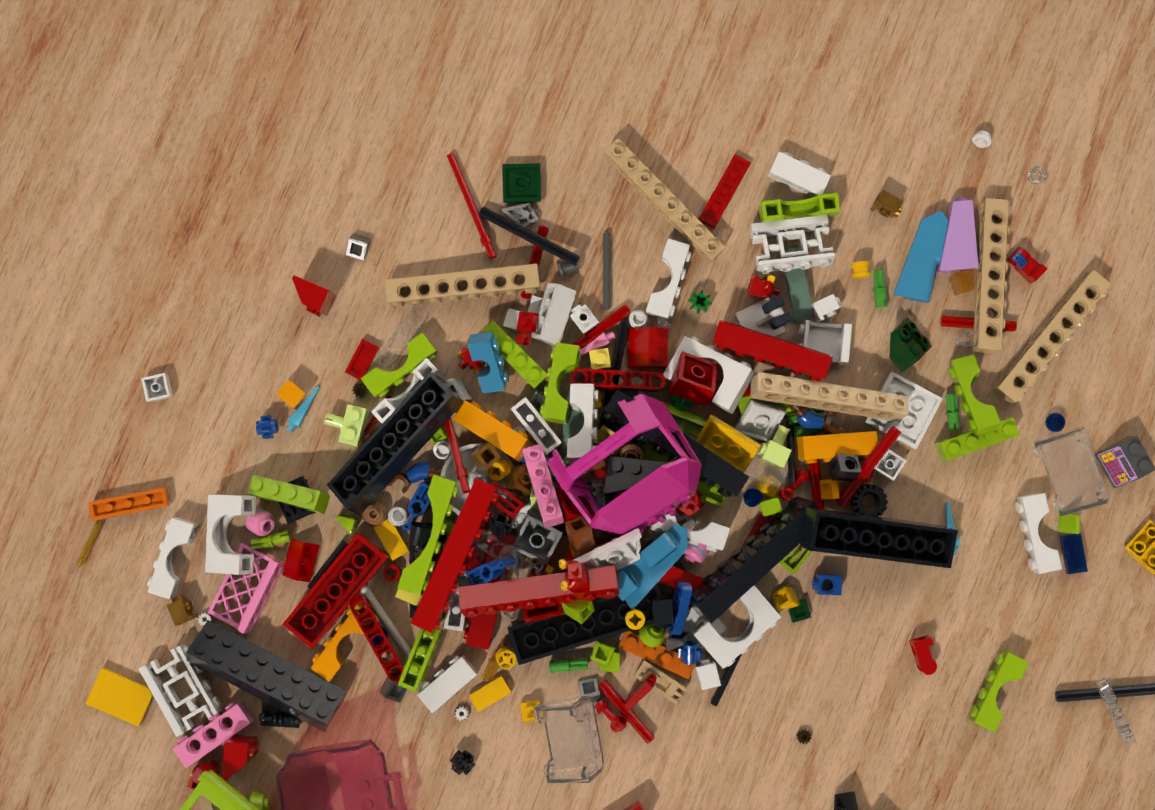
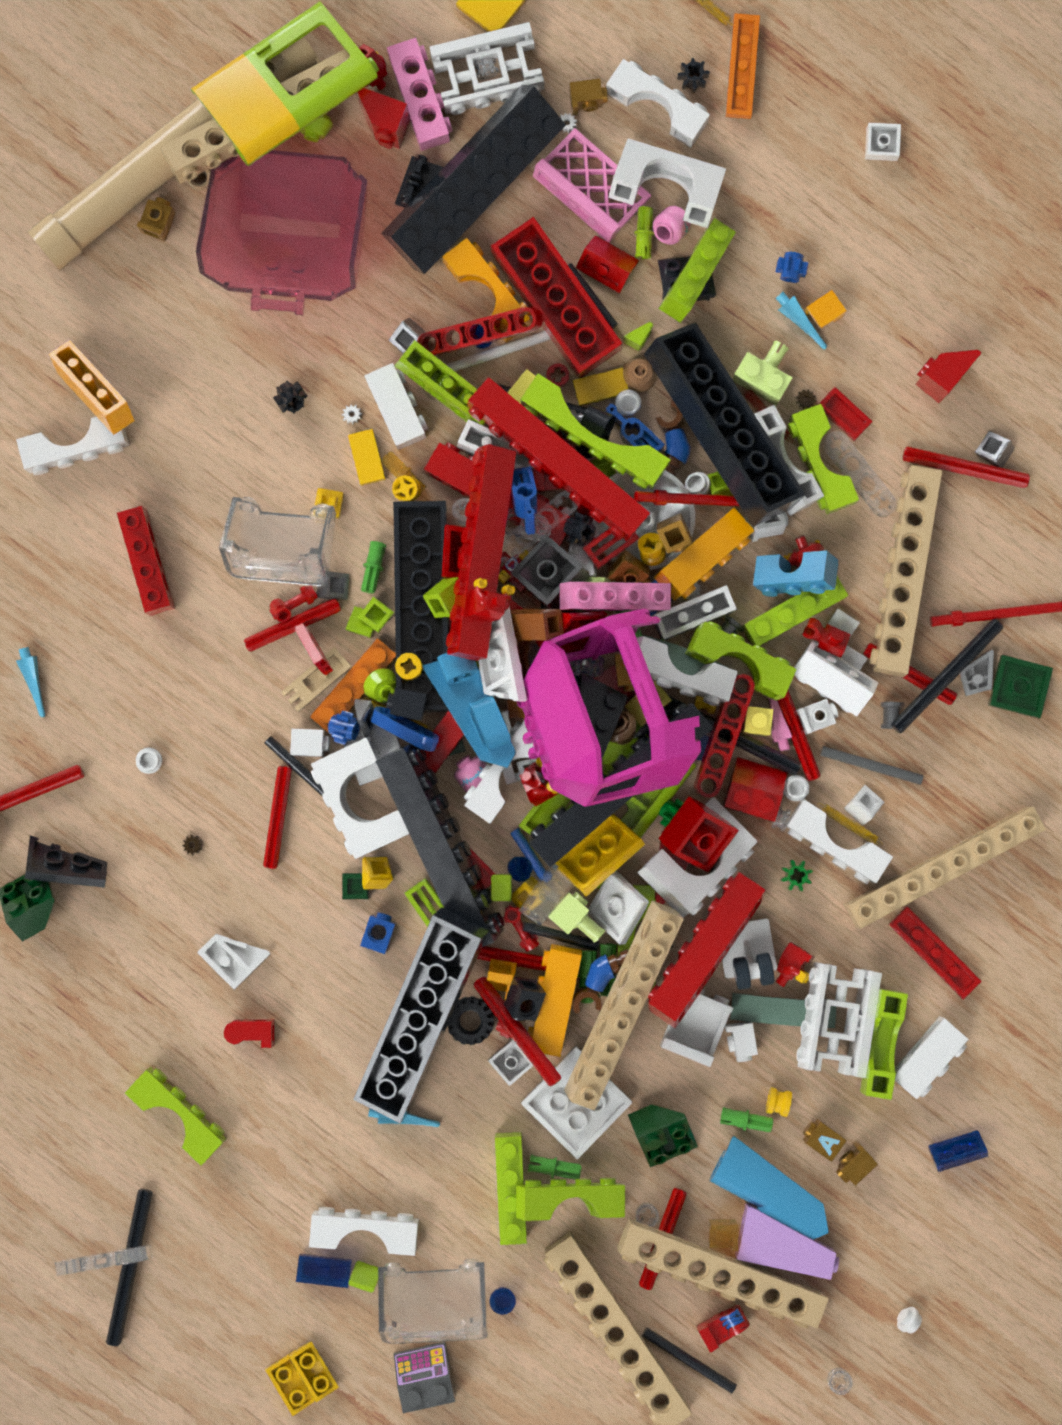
camera: 110 degrees right, 0 degrees up
(139, 539) = (692, 68): none -> black gear
(180, 690) = (486, 68): none -> clear bush
(376, 263) = (966, 467): none -> red axle
(636, 268) = (864, 805): none -> white slope
(652, 275) = (868, 833): none -> yellow piece
(733, 500) = (528, 852): none -> blue piece
(753, 786) = (149, 760): none -> white plate
(766, 681) = (277, 817): none -> red axle
(856, 137) = (958, 1151): none -> clear blue plate
(876, 683) = (232, 958): none -> white wing
(877, 231) = (823, 1139): none -> pearl gold brick
(1055, 281) = (689, 1360): none -> black bar

